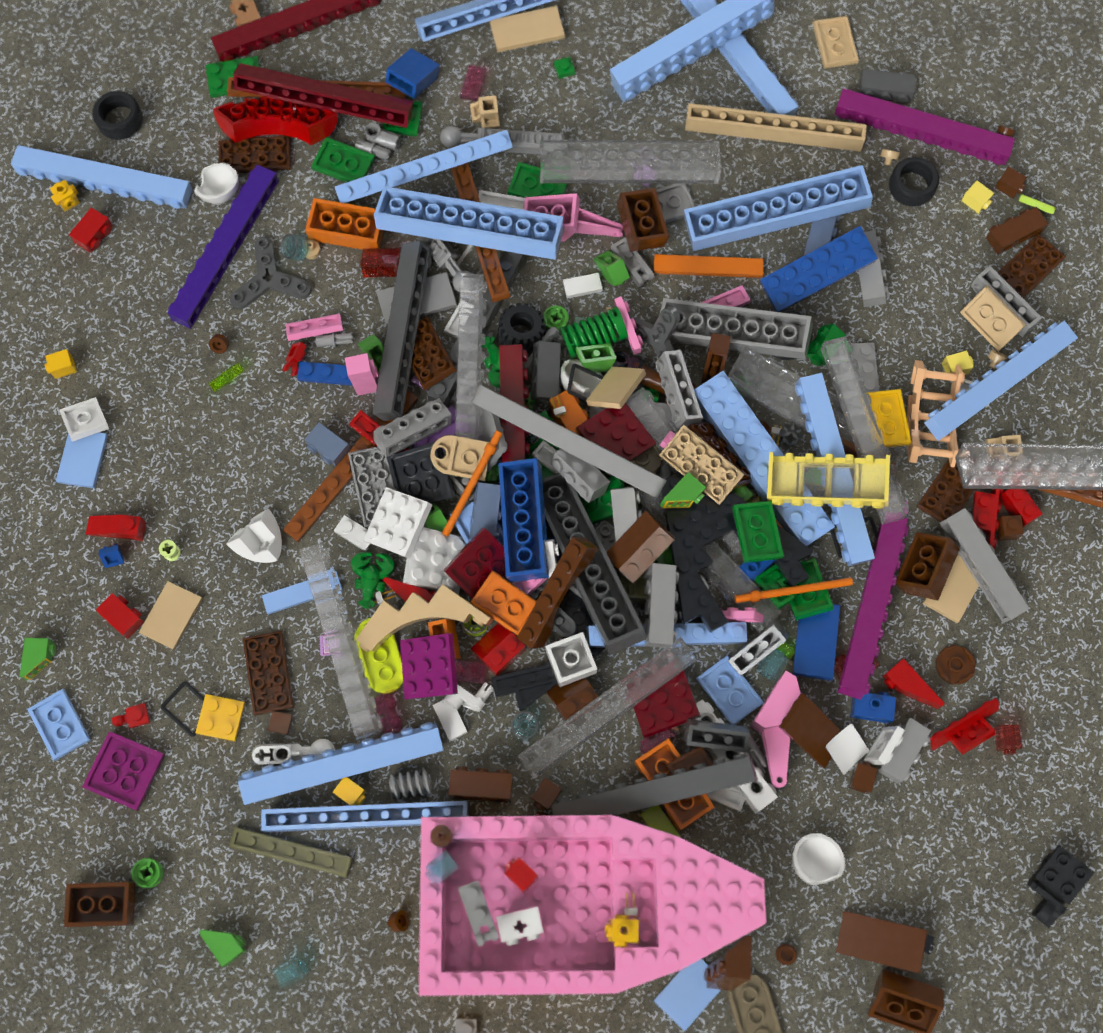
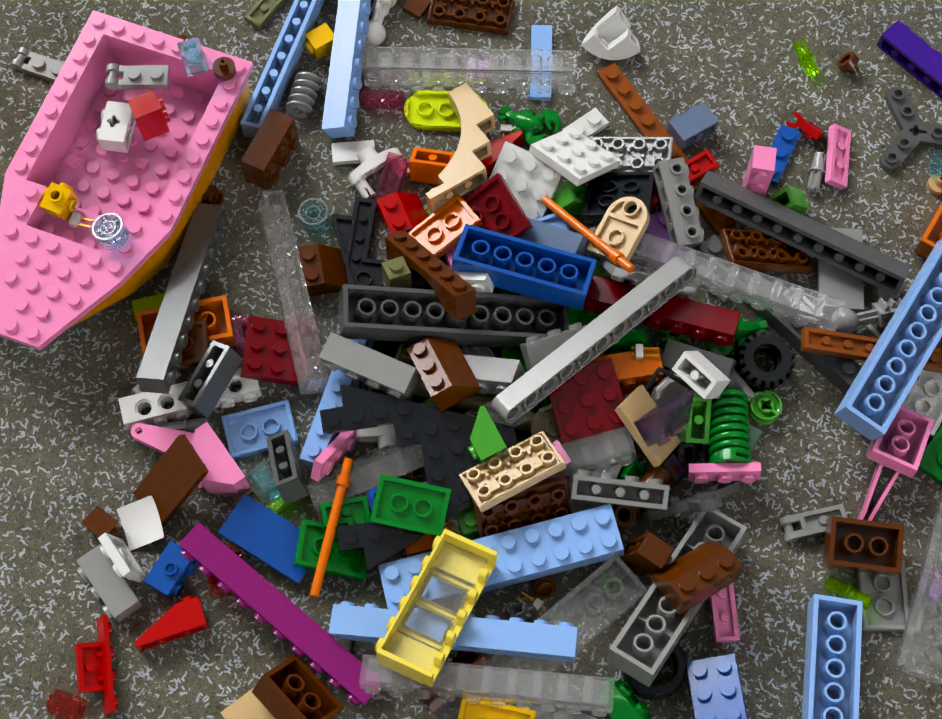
camera: 110 degrees right, 5 degrees down
(384, 260) = (898, 239): clear red brick -> none
(428, 666) = (410, 140): magenta plate -> none
(546, 795) = (236, 209): reddish brown brick -> none
(564, 358) = (701, 374): none -> white brick
(566, 622) = (396, 273): none -> olive brick
(571, 659) = (356, 266): white brick -> none
(582, 285) = (801, 455): white tile -> none
(610, 373) = (665, 419): none -> slope
(612, 268) = (812, 493): bright green slope -> none
(636, 870) = (110, 231): none -> clear light blue wheel
(676, 225) = (848, 592): none -> clear neon green axle
(708, 266) = (780, 614): orange tile -> none
(721, 313) = (697, 575): none -> reddish brown slope
(818, 859) = (42, 436): white cylinder -> none
(950, 661) = (183, 695): reddish brown tile -> none

